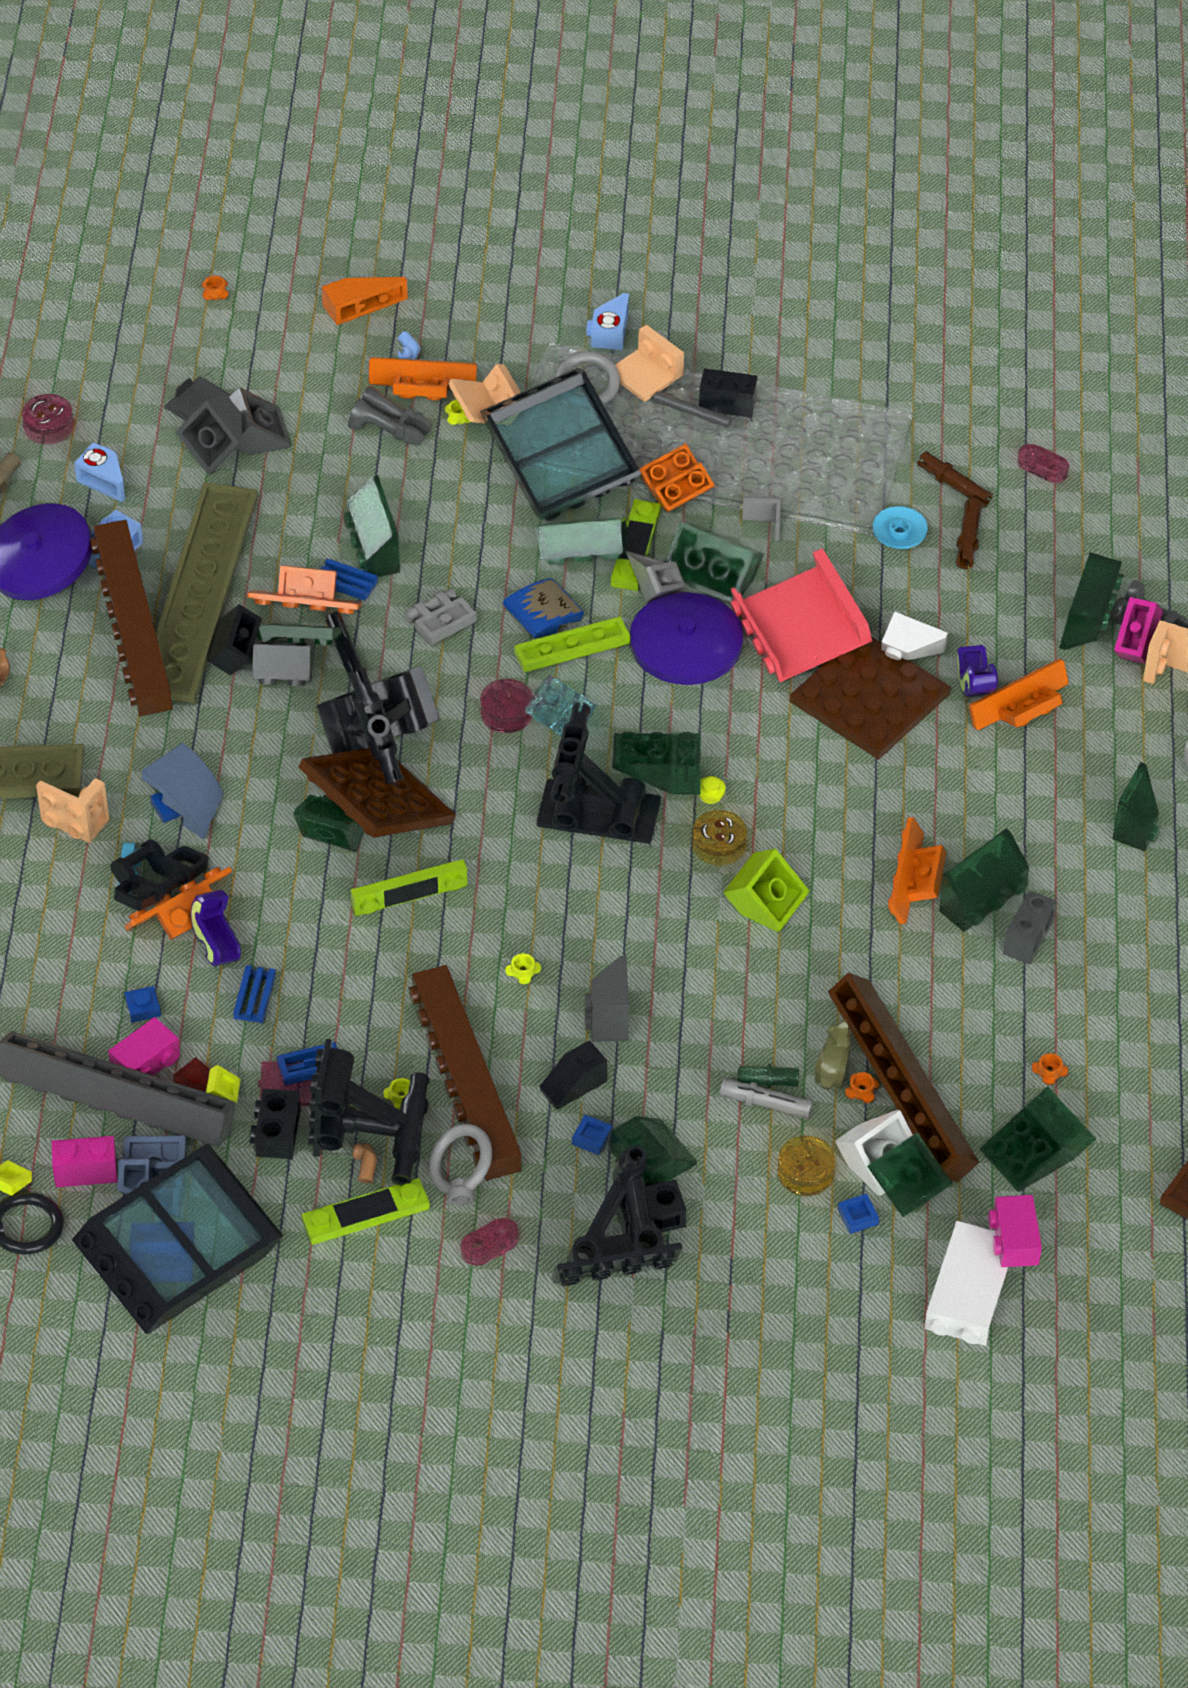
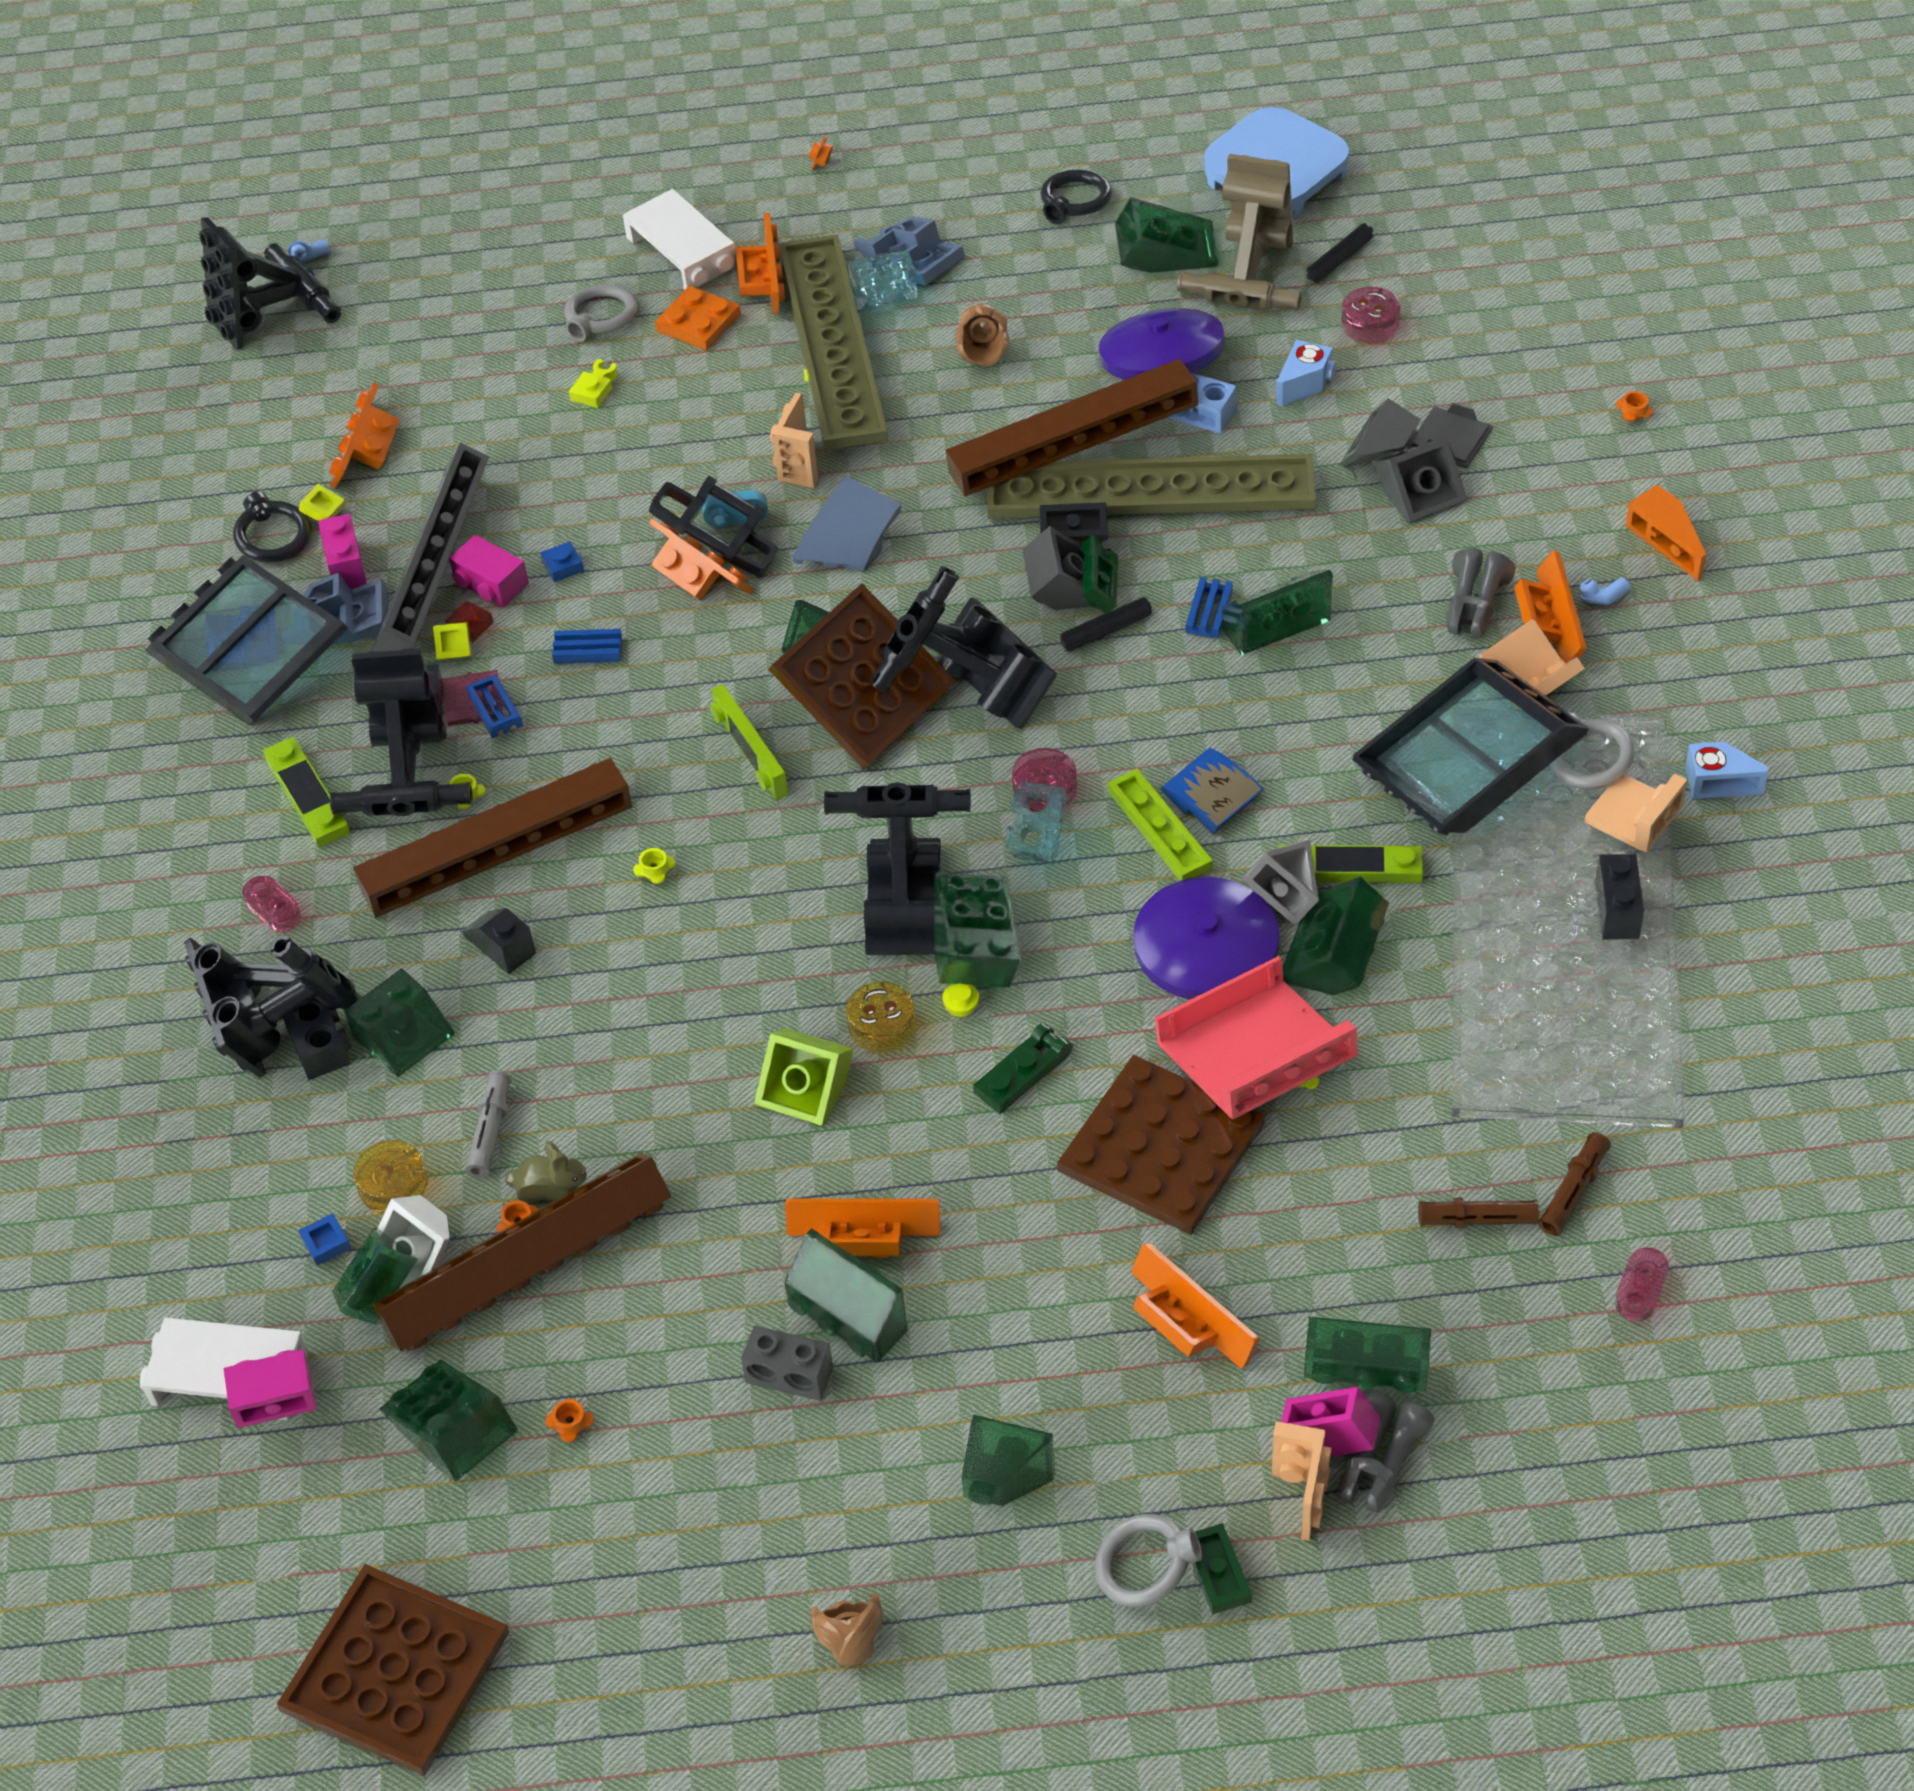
camera: 85 degrees right, 0 degrees up
(213, 928) = (655, 588): dark purple animal -> none
(308, 587) = (1171, 572): orange bracket -> none
(368, 1161) = (369, 776): medium nougat arm -> none
(444, 621) = (1168, 705): light grey plate -> none
(460, 1189) = (337, 858): light grey piece -> none
(582, 539) = (1329, 800): clear green slope -> none
(592, 1134) = (421, 964): blue plate -> none
(609, 1004) = (595, 942): dark grey slope -> none
(676, 478) = (1457, 873): orange slope -> none
(692, 409) = (1587, 873): dark grey bar -> none
(763, 510) = (1445, 978): light grey bracket -> none
(768, 1075) = (521, 1121): clear green axle -> none
(784, 763) = (1022, 1068): none -> dark green plate
(900, 527) = (1460, 1118): medium azure dish -> none
(912, 639) = (1245, 1158): white slope -> none
(974, 673) = (1204, 1251): dark purple animal -> none

